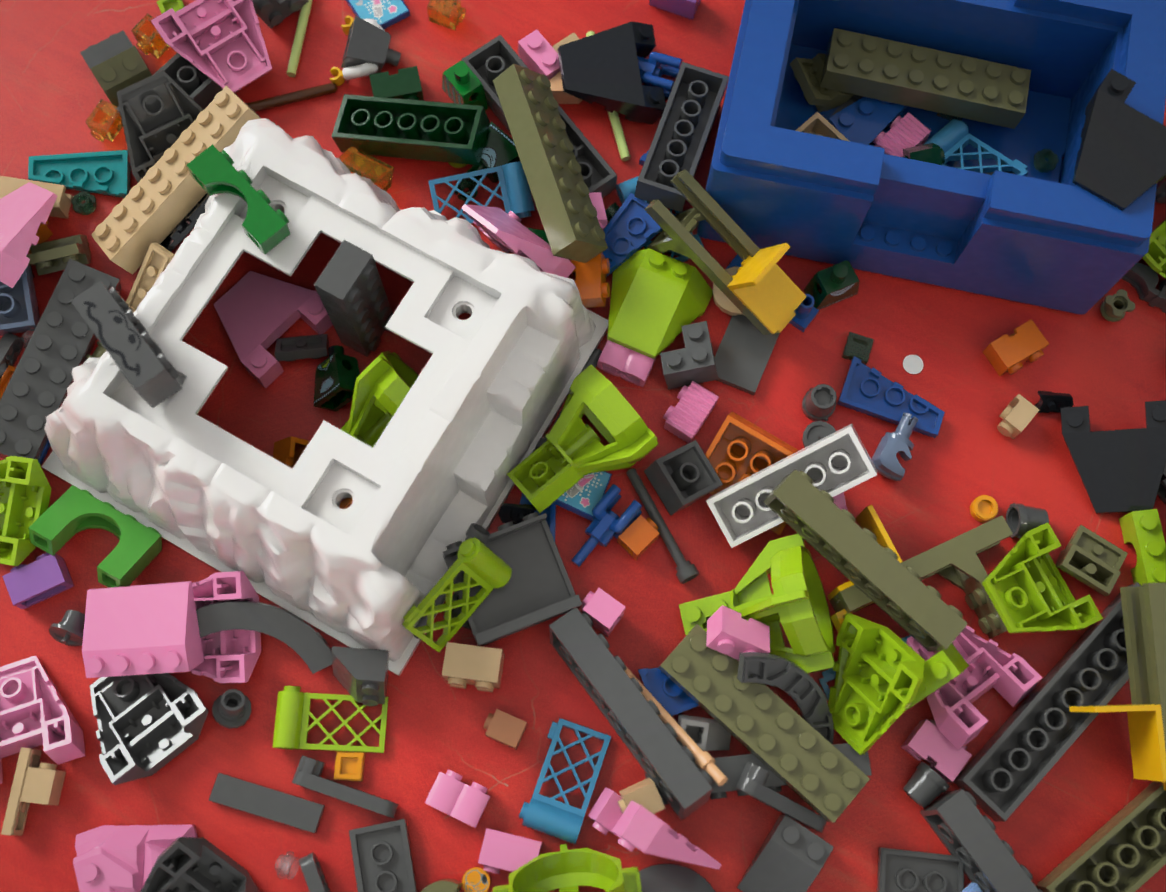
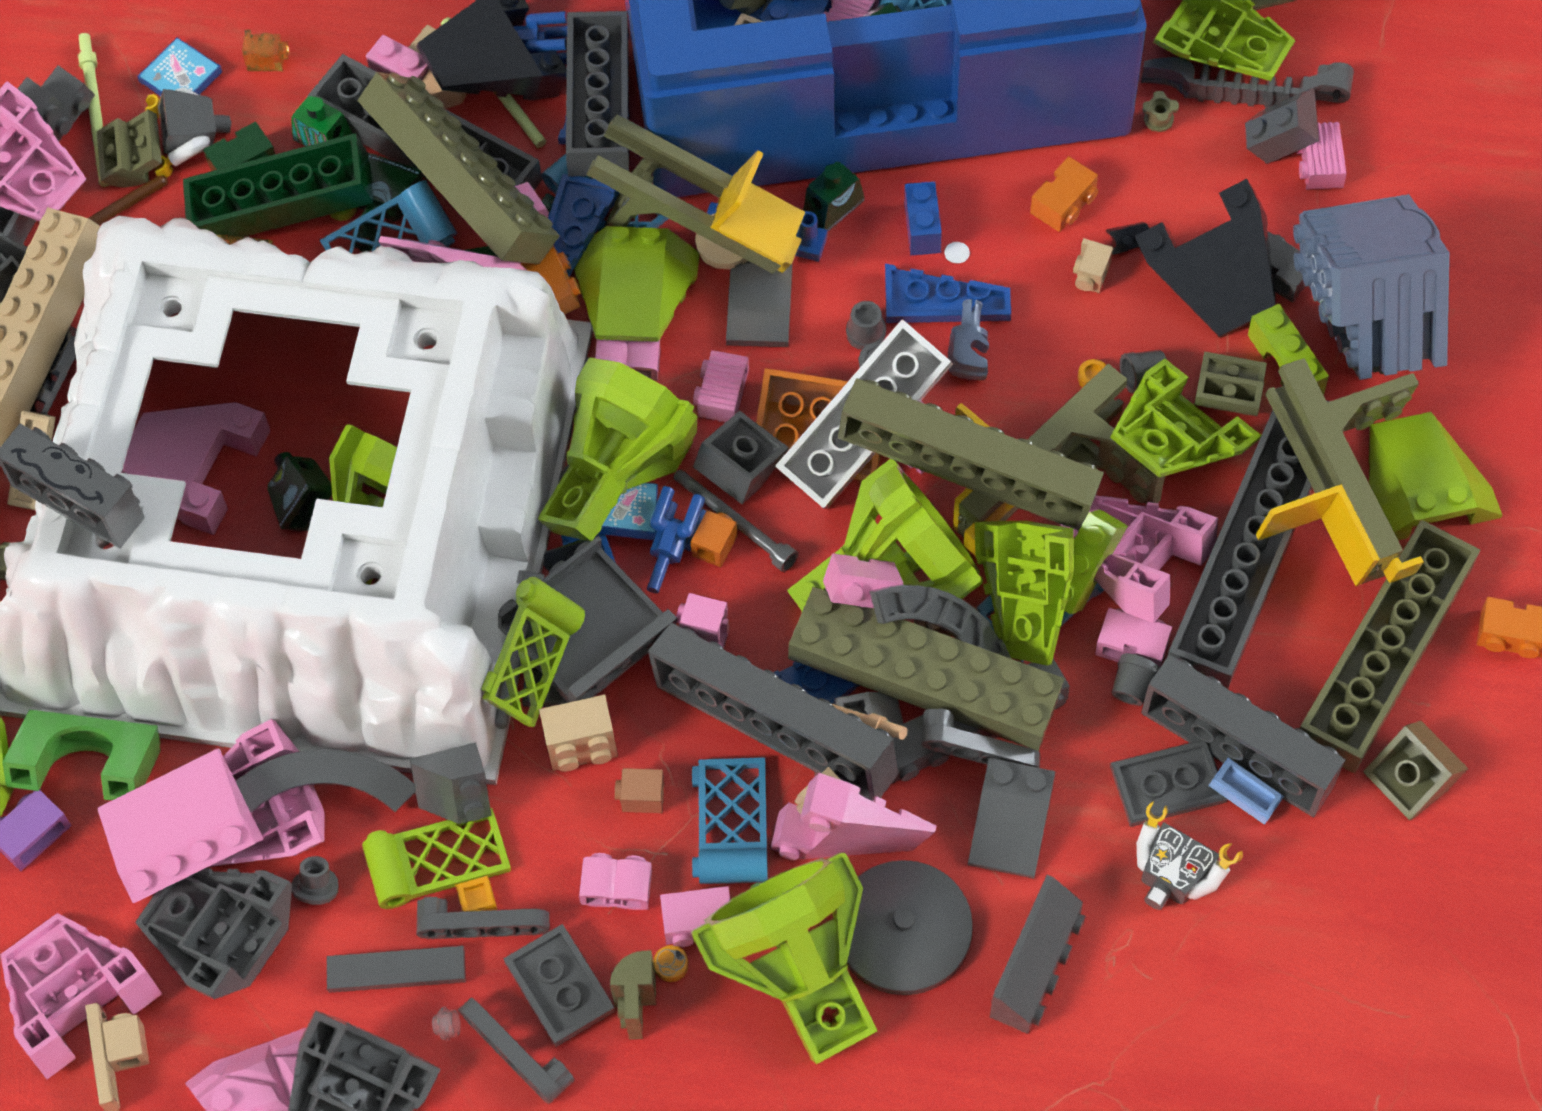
camera: 15 degrees left, 10 degrees down
(70, 628) = (89, 867): dark grey piece -> none
(216, 175) = (96, 283): green arch -> none
(302, 347) = (248, 469): dark grey plate -> none
(315, 55) = (129, 150): none -> olive brick
(355, 298) = (293, 382): dark grey brick -> none
(694, 361) = (703, 329): dark grey brick -> none
(857, 346) = (886, 252): tile -> none
(897, 328) = (922, 218): none -> blue brick

